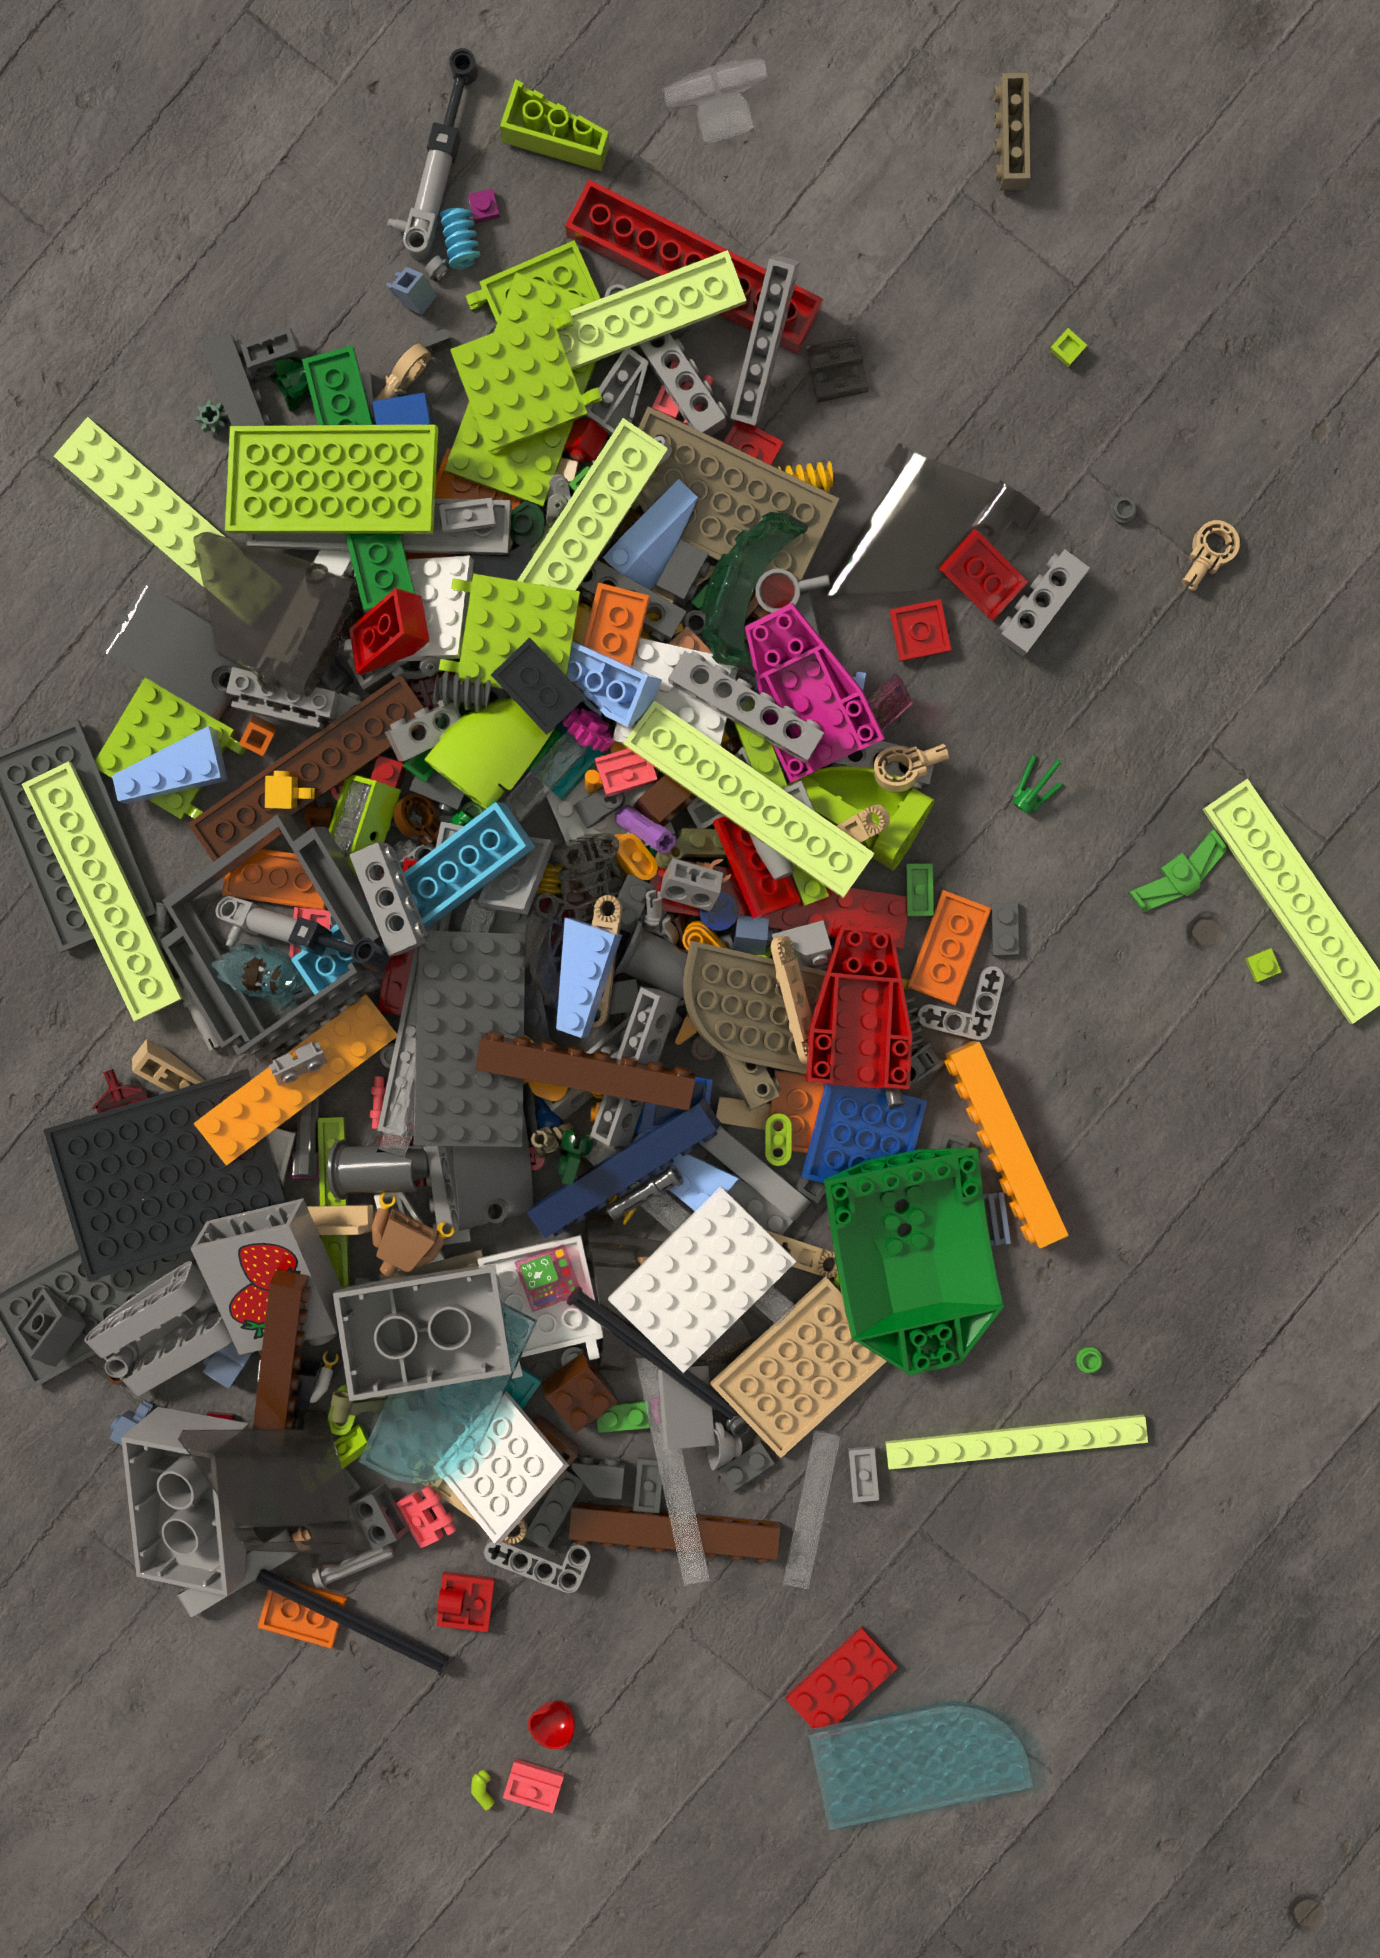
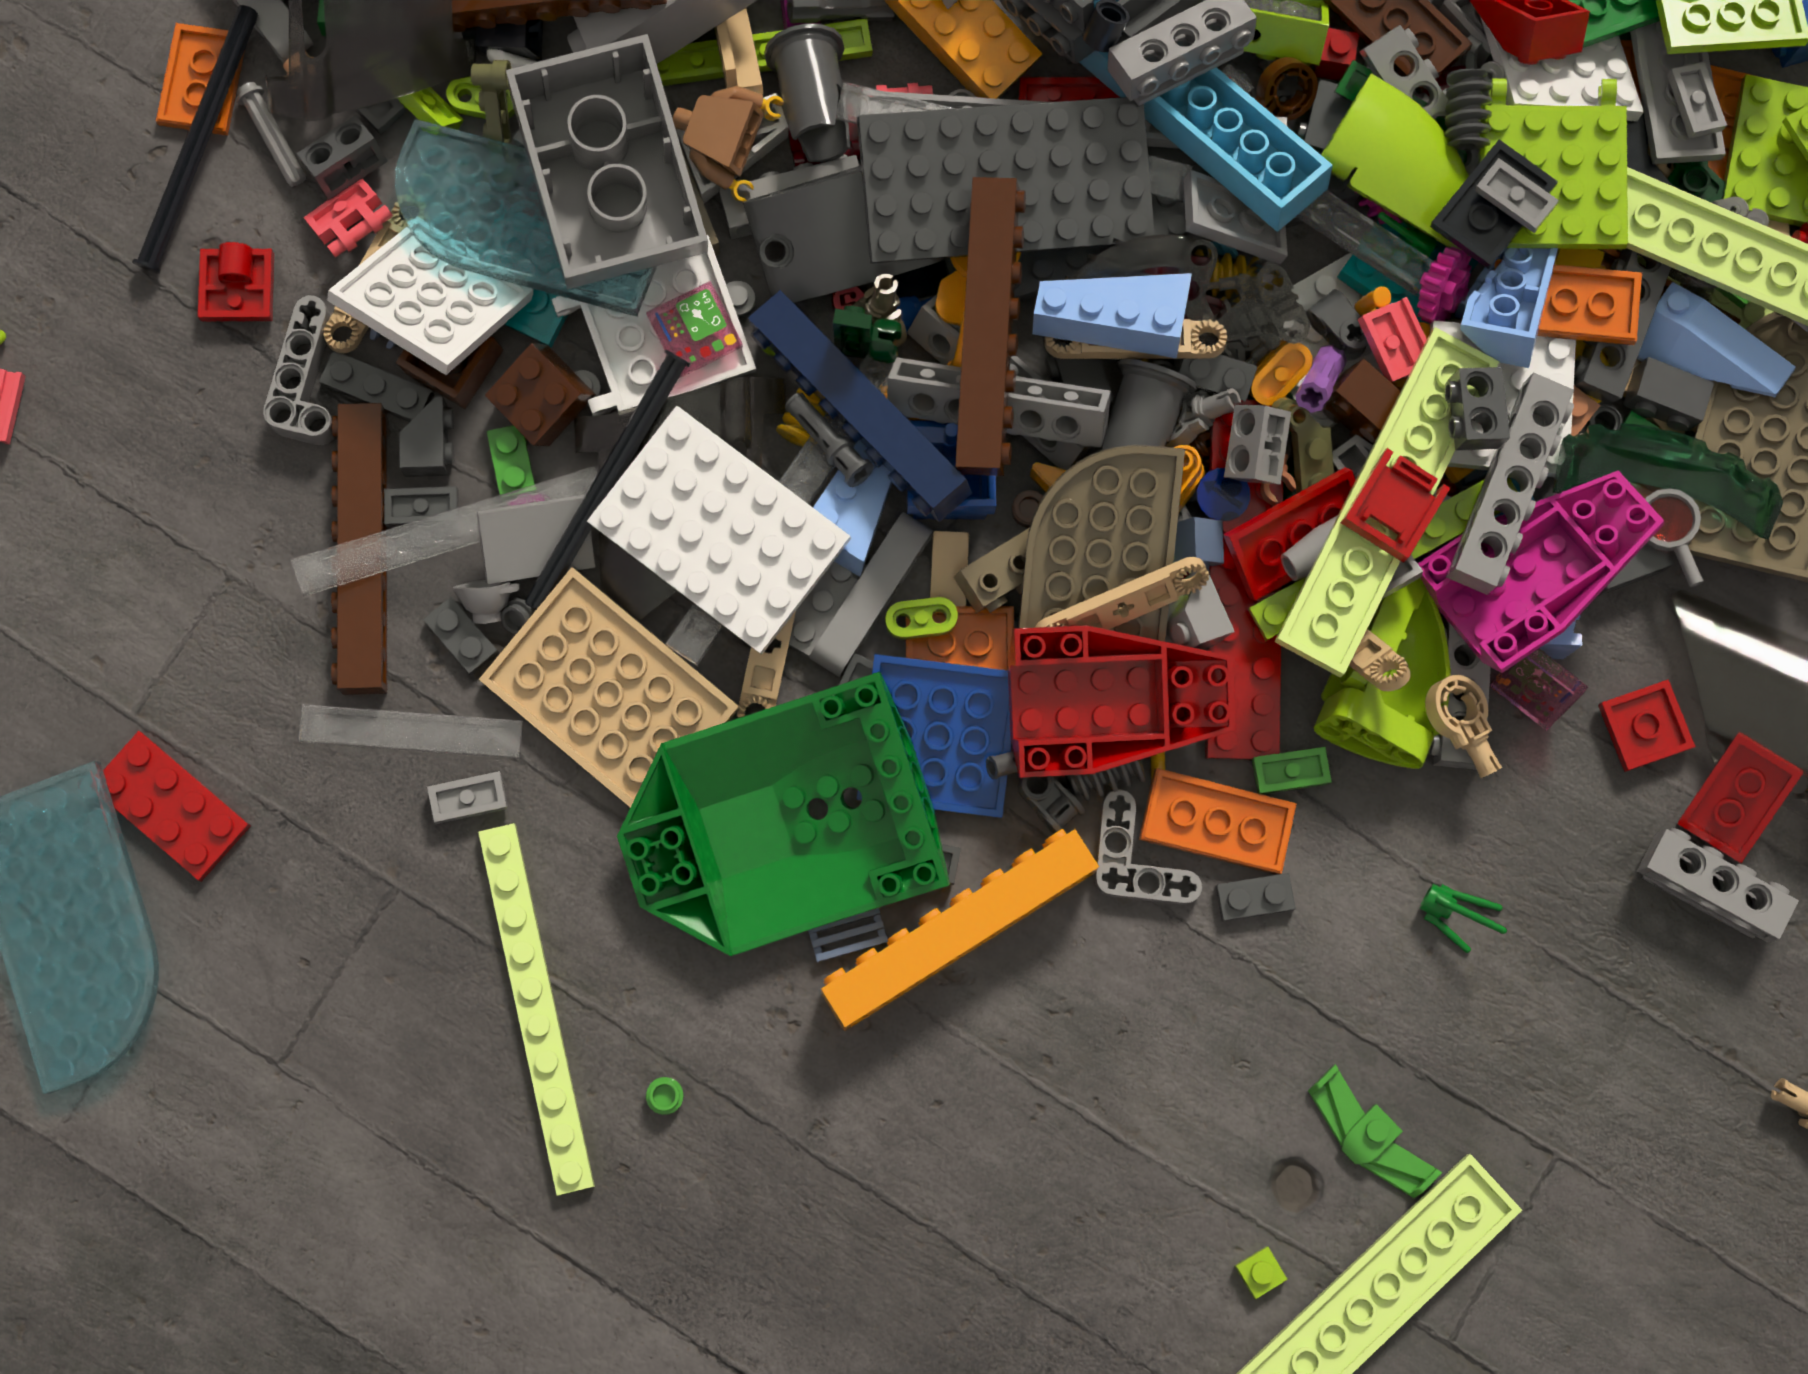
camera: 75 degrees right, 10 degrees down
(520, 1238) = (741, 296): none -> light grey plate
(538, 671) = (1516, 195): none -> light grey plate
(552, 1725) = (78, 417): red helmet -> none
(692, 716) = (1487, 409): none -> dark grey brick
(752, 793) = (1398, 501): none -> red container

